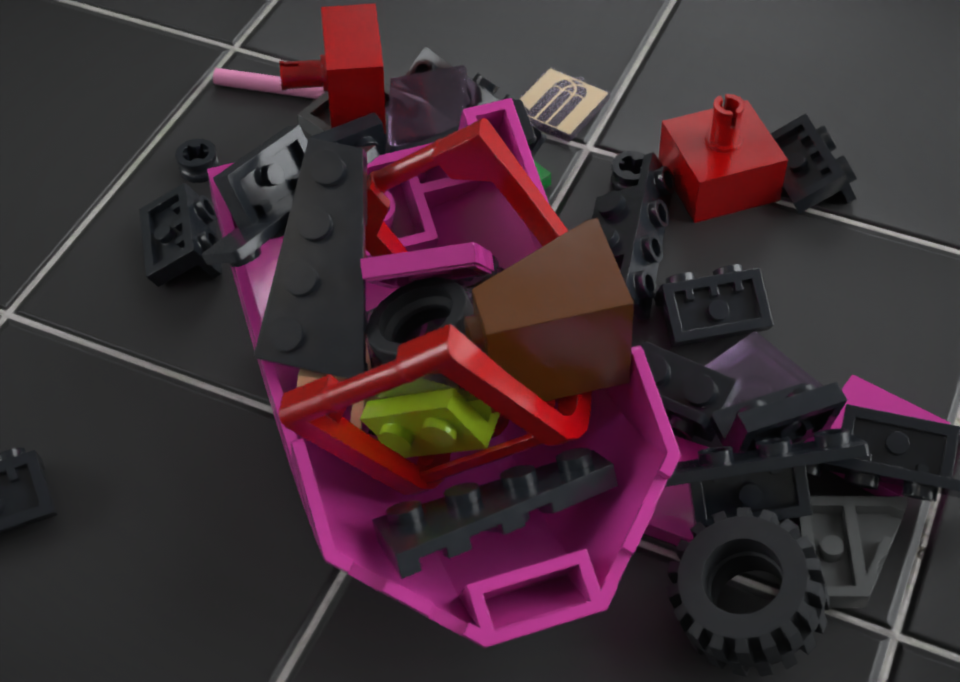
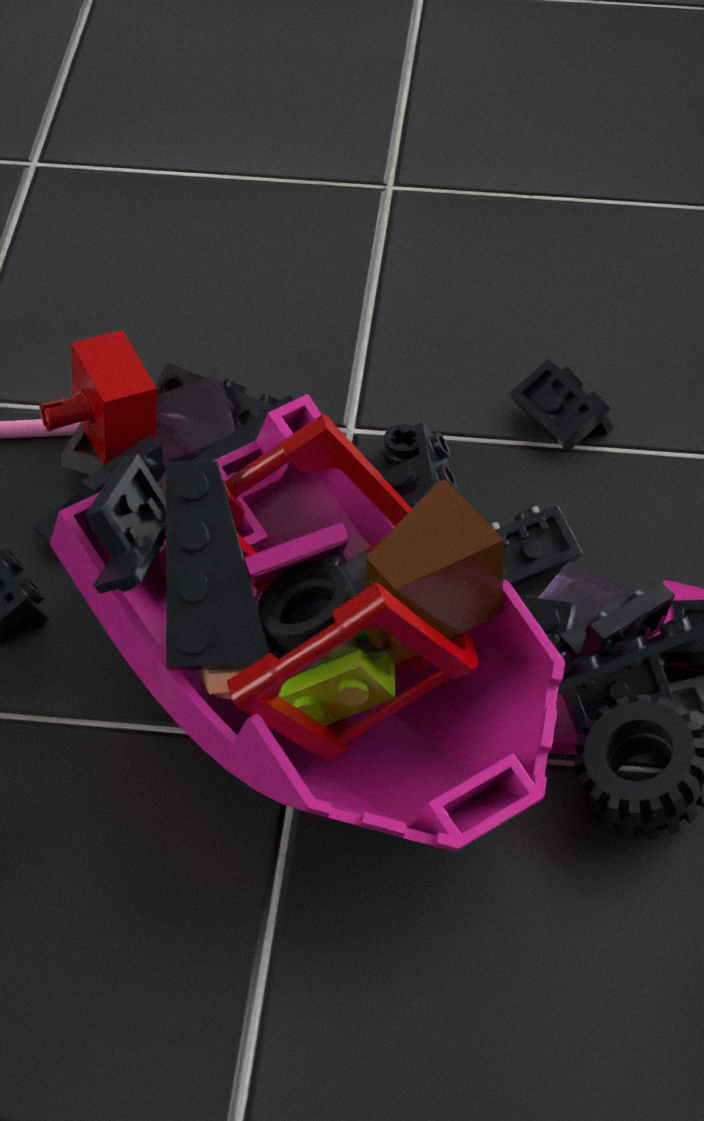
camera: 20 degrees left, 5 degrees down
(500, 506) = (398, 751): black wing -> none
(563, 103) = (323, 385): piece -> none
(722, 159) = (486, 416): red brick -> none

